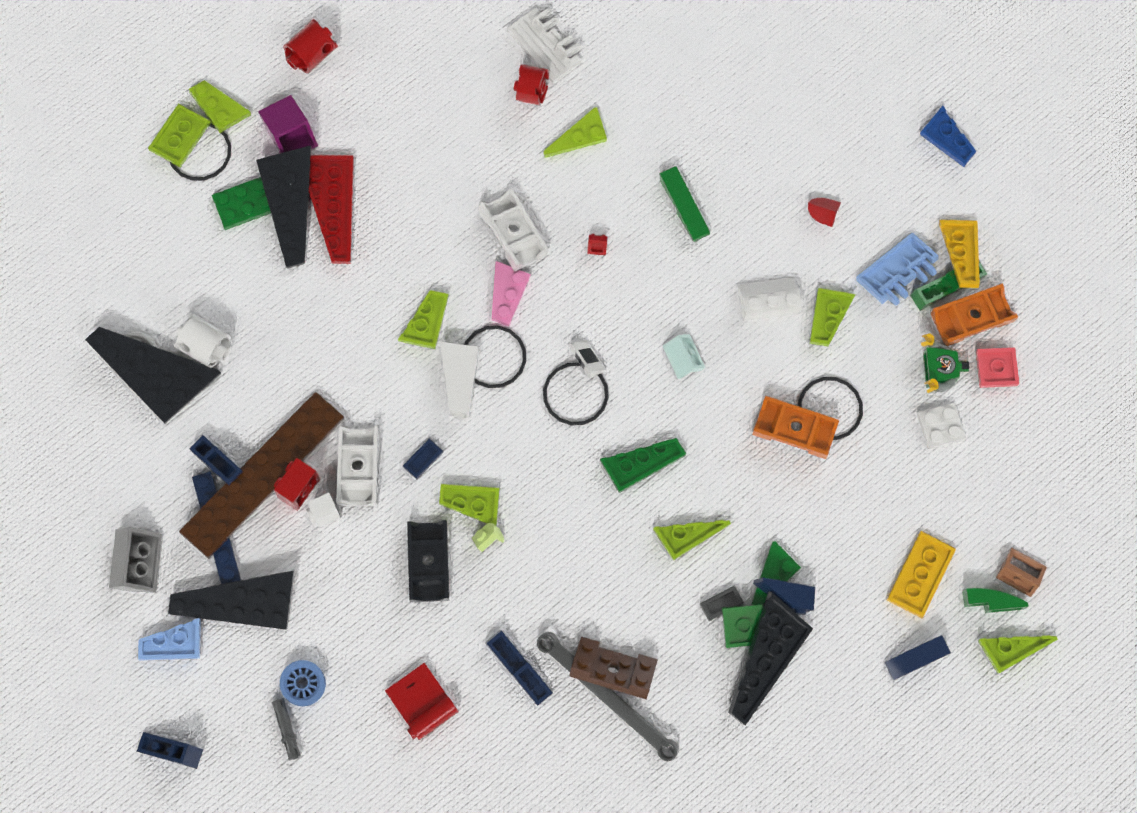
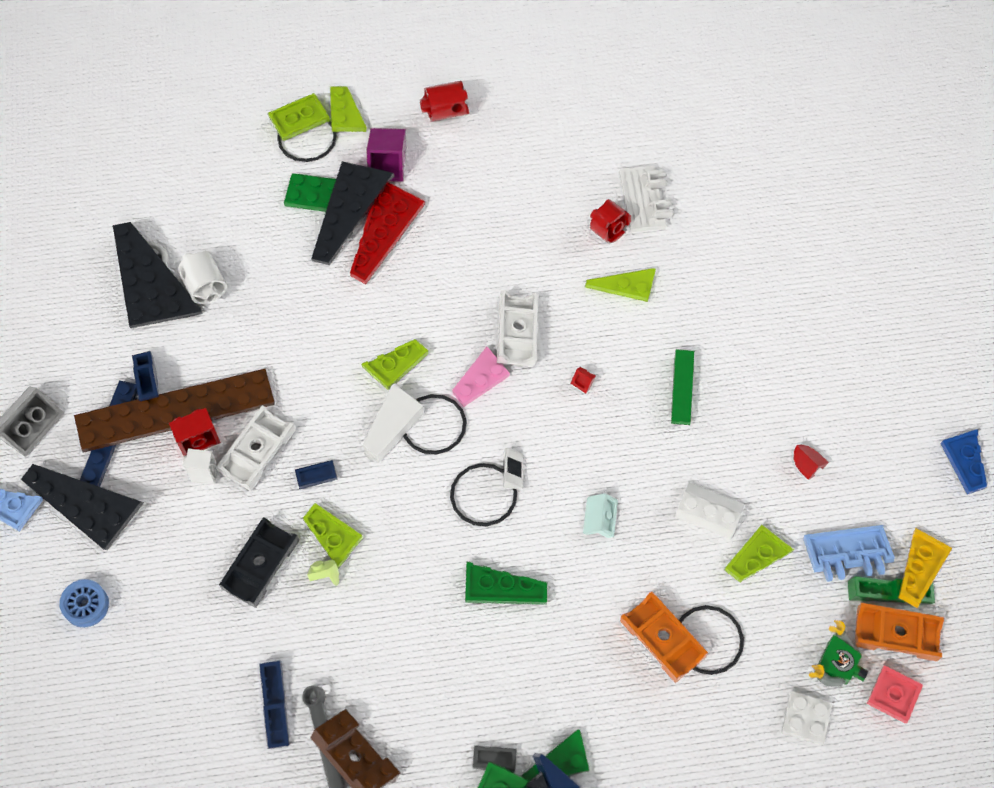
camera: 35 degrees right, 10 degrees down
(286, 729) = (40, 641): dark grey pin -> none
(421, 702) = (170, 685): red door -> none
(682, 538) = (497, 677): lime wing -> none

